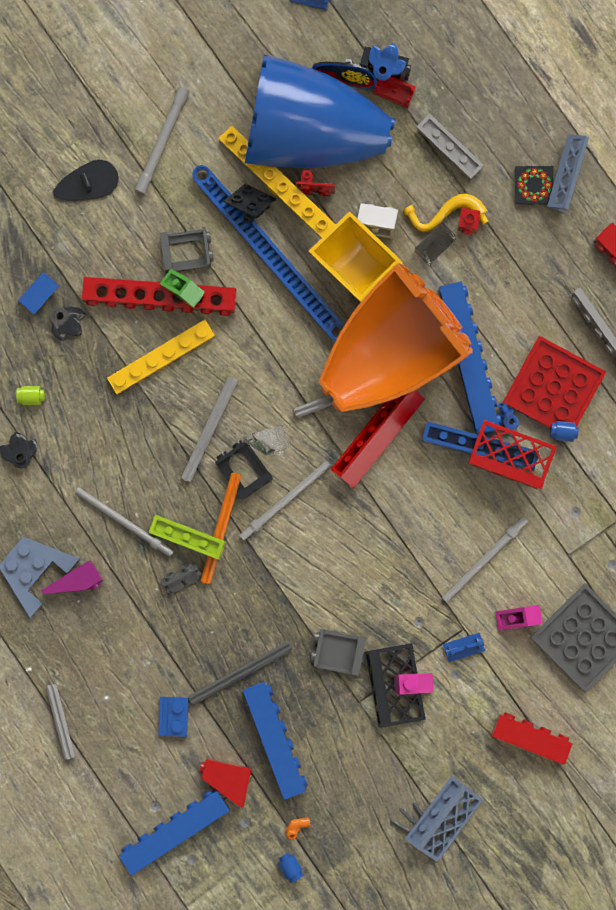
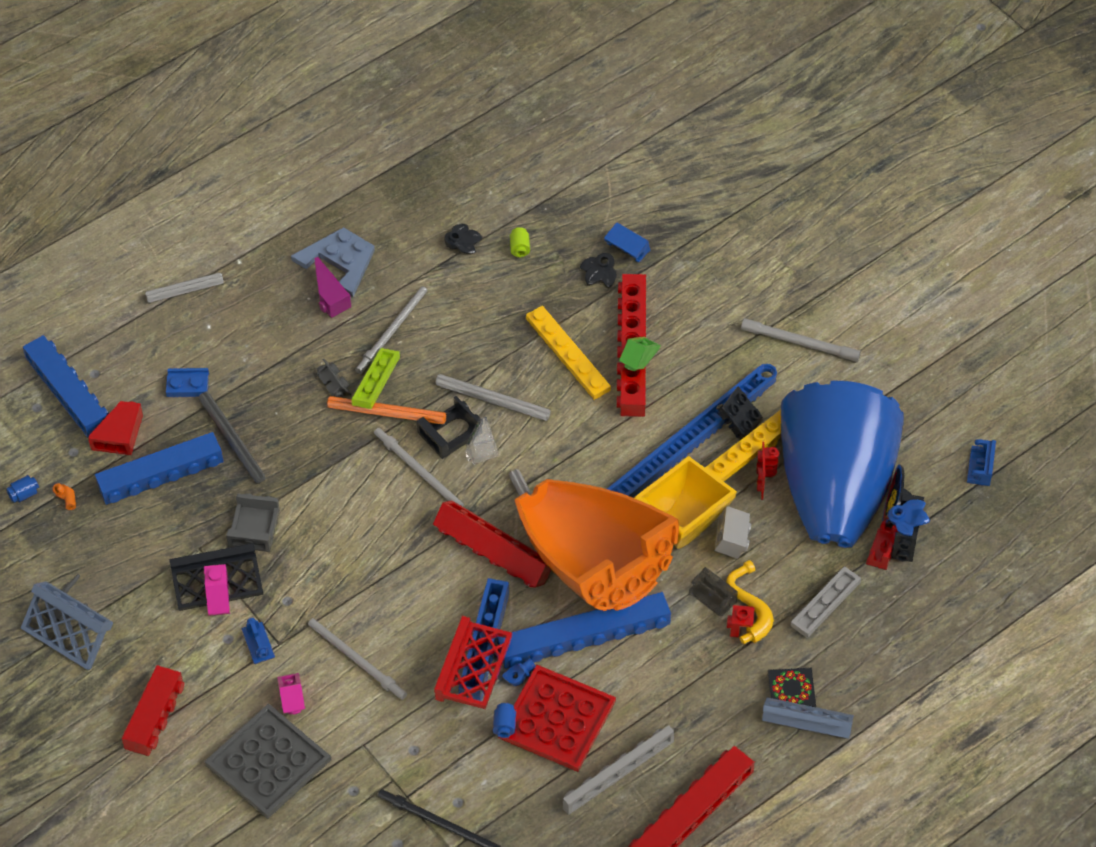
camera: 85 degrees right, 30 degrees down
(88, 182) = (749, 282): black shield -> none
(181, 237) = (680, 348): dark grey panel -> none

